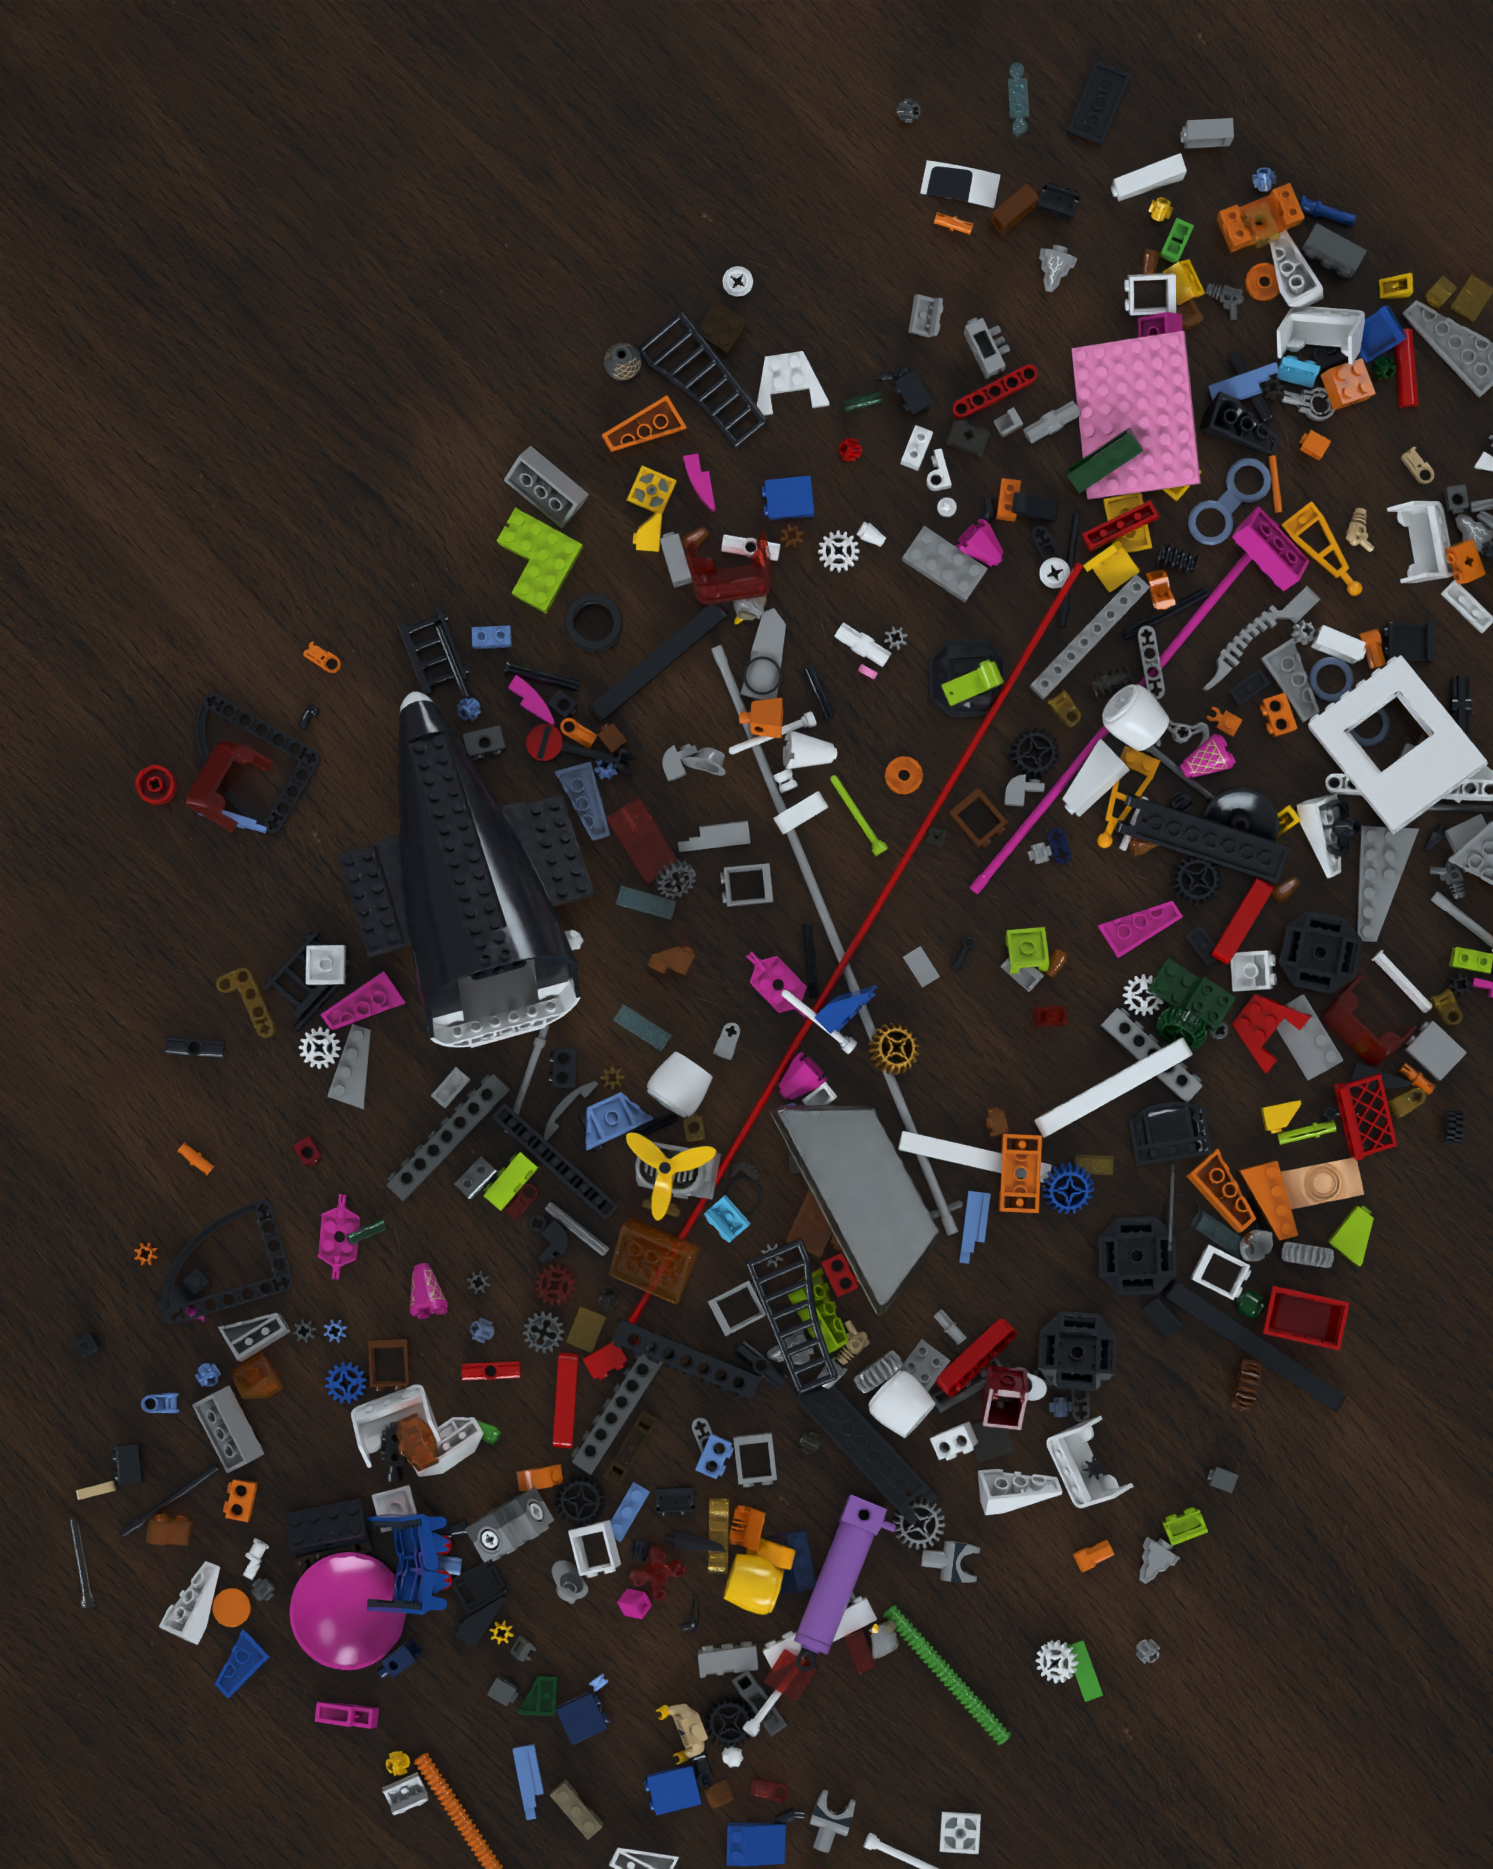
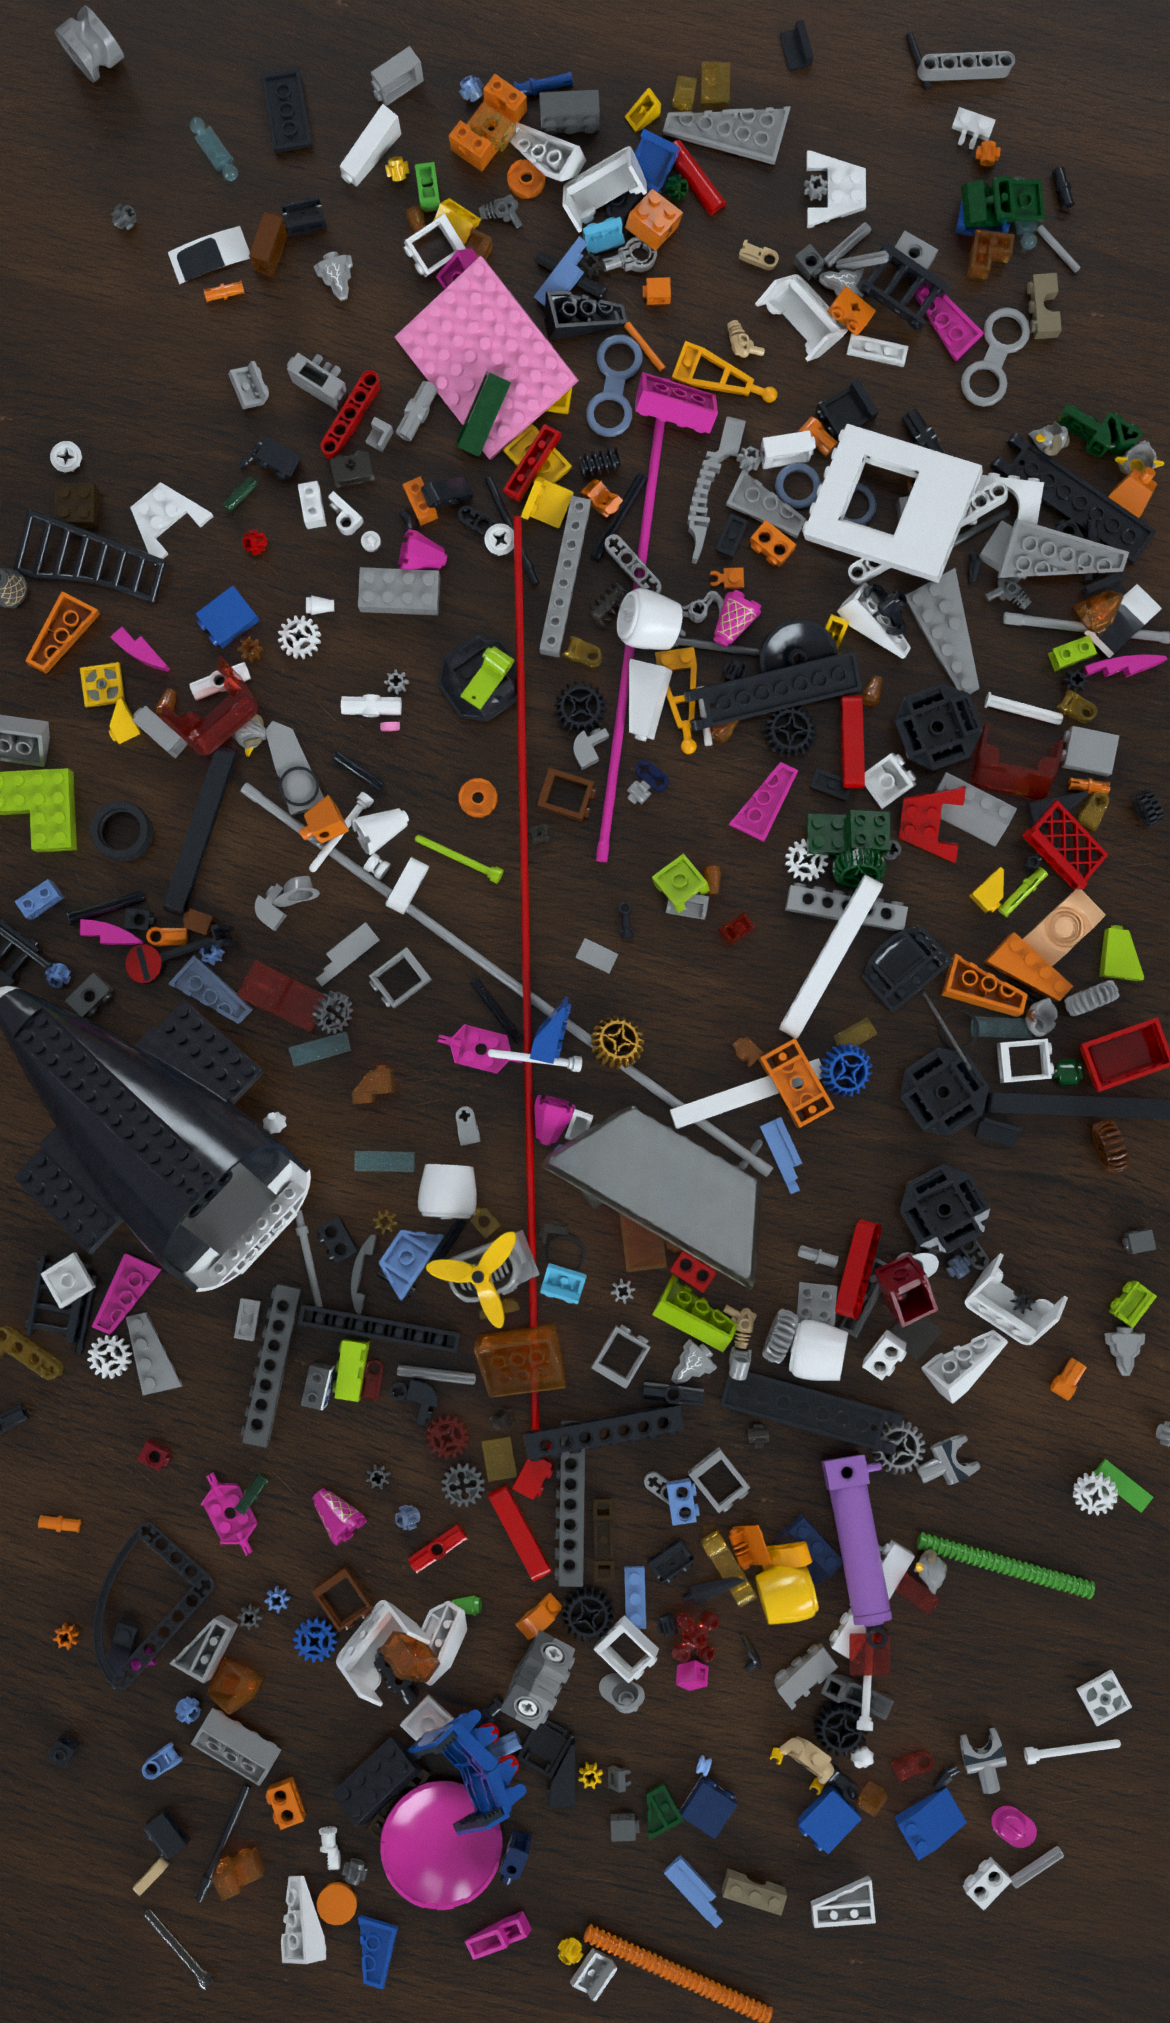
camera: 35 degrees left, 0 degrees up
(774, 1316) = (681, 1314): black bar -> none

